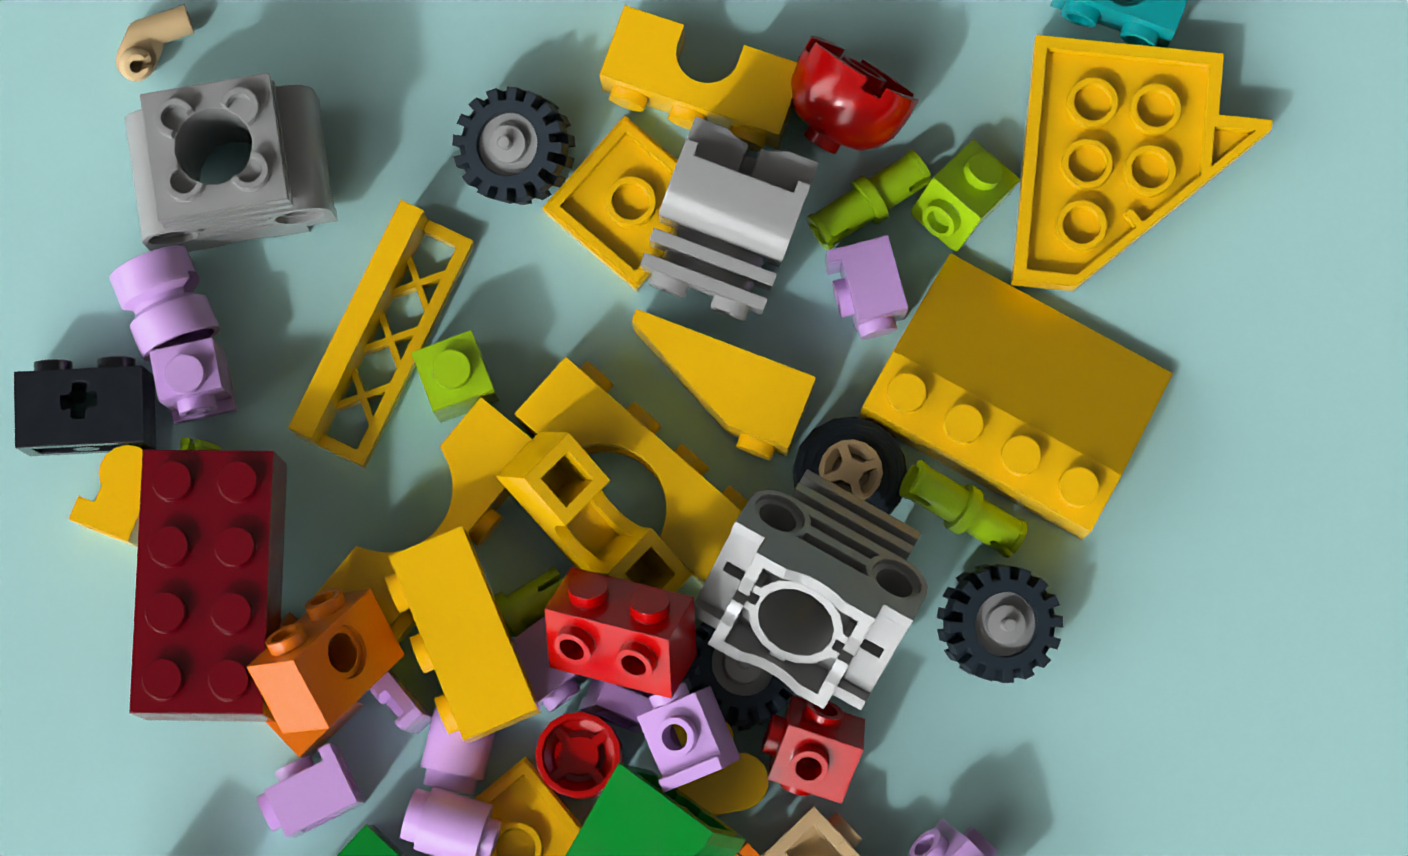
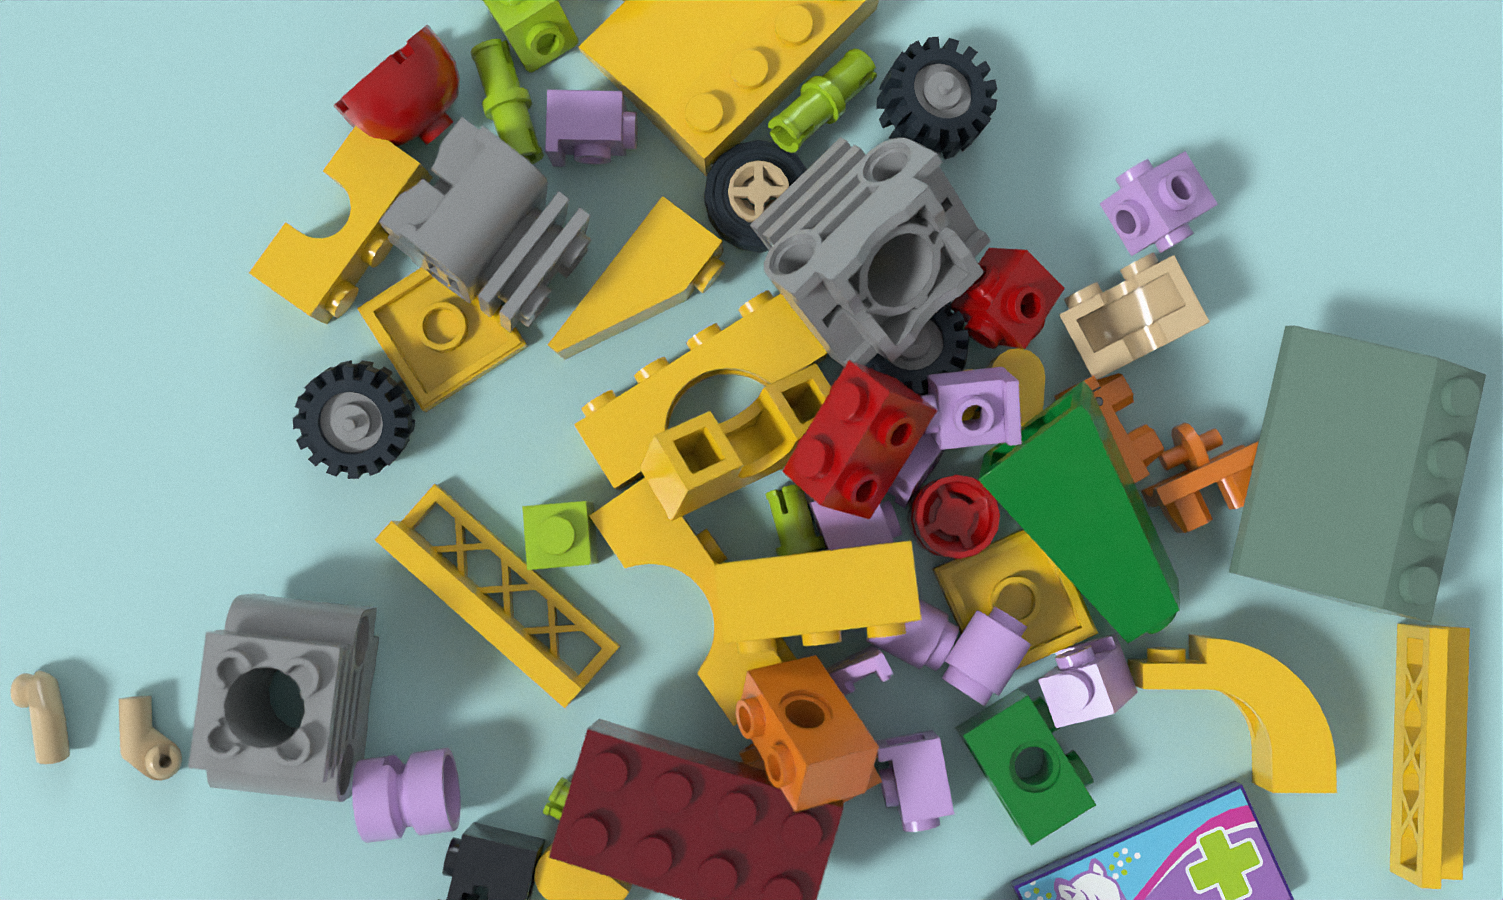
camera: 80 degrees left, 5 degrees up
(193, 380) = (490, 787): lavender brick -> none

